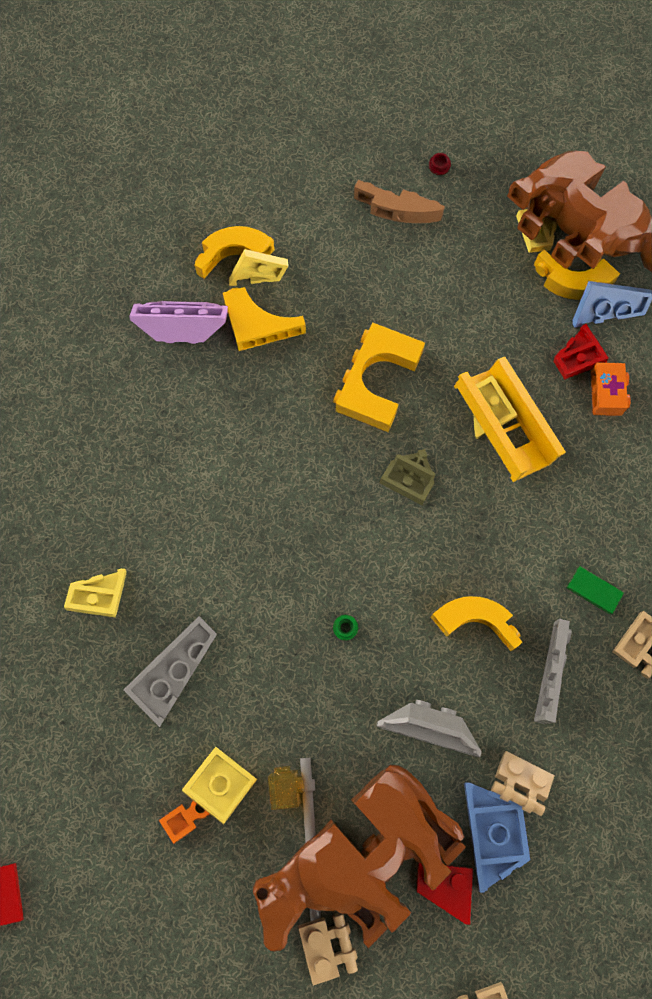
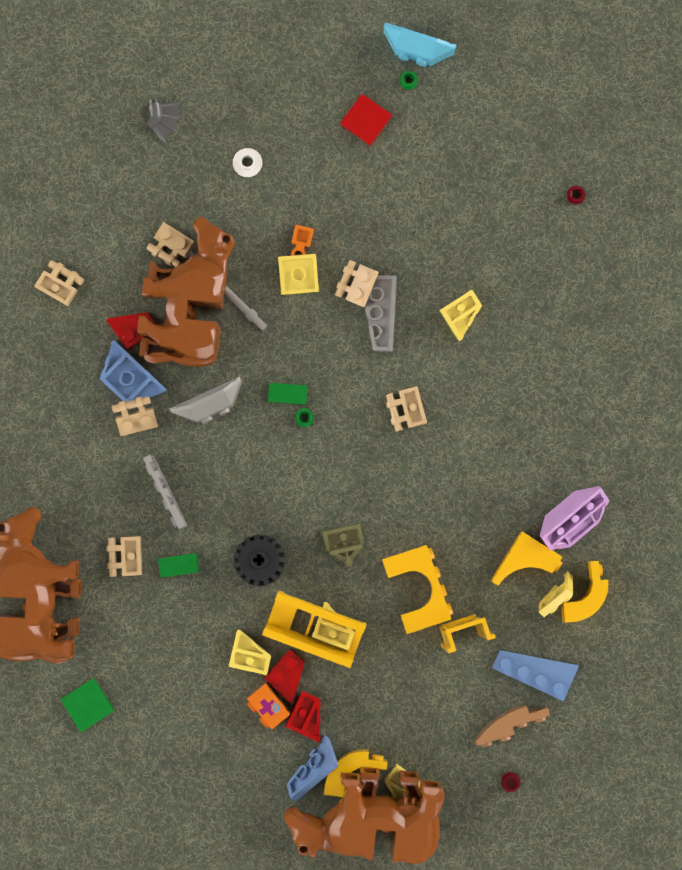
camera: 140 degrees right, 10 degrees up
(165, 712) = (361, 285): none -> tan plate
(171, 960) = (251, 170): none -> white piece
(230, 545) = (412, 409): none -> tan plate
(285, 788) = (261, 302): clear yellow brick -> none
(333, 223) = (543, 674): none -> medium blue wing
(341, 667) = (287, 393): none -> green tile
(391, 284) = (447, 628): none -> yellow piece
(478, 610) = (244, 485): yellow arch -> none
(508, 538) = (268, 570): none -> black wheel
(568, 403) = (286, 675): none -> red wing
(591, 448) = (249, 655): none -> light yellow wing

